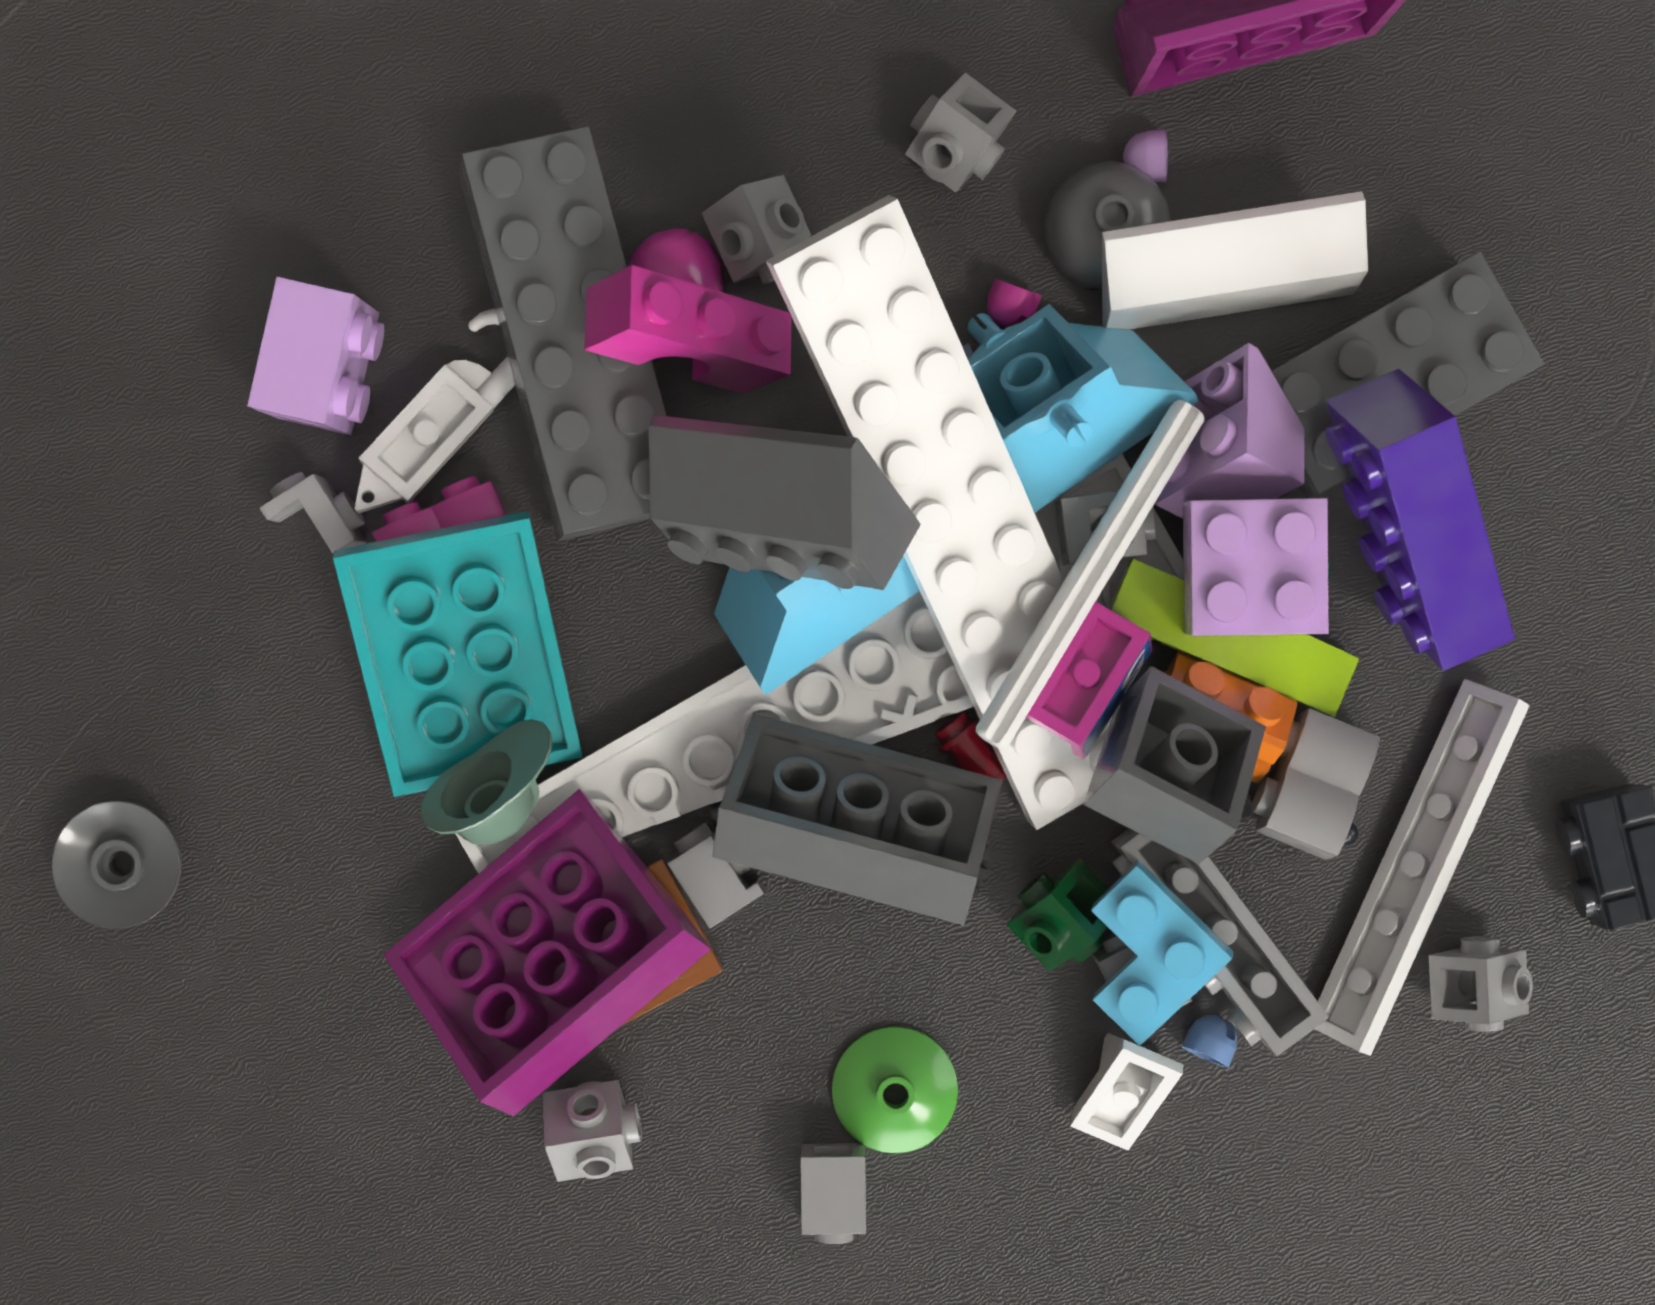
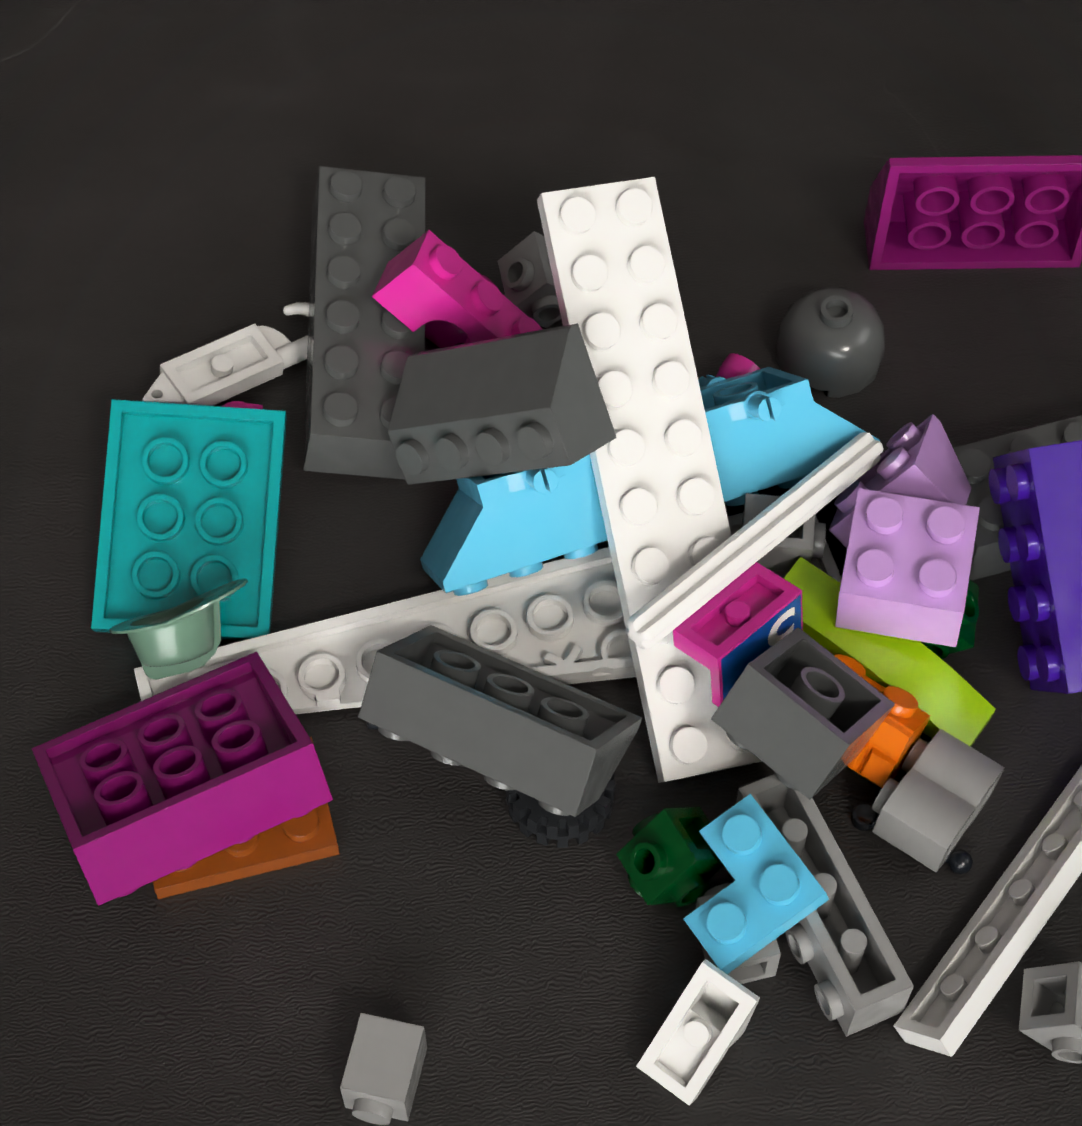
camera: 15 degrees right, 30 degrees down
(316, 357) = (151, 287): lavender brick -> none
(330, 513) = (94, 390): light grey bracket -> none
(589, 1130) = (165, 950): light grey brick -> none
(712, 883) = (356, 759): light grey brick -> none
(886, 1058) = (477, 1029): bright green dish -> none
(960, 133) = (721, 248): light grey brick -> none
(967, 747) = (618, 692): dark red pin -> none
(1149, 153) = (881, 297): lavender hinge -> none
(1212, 1040) = (793, 1020): medium blue hinge -> none
(1234, 262) = (908, 369): white slope -> none

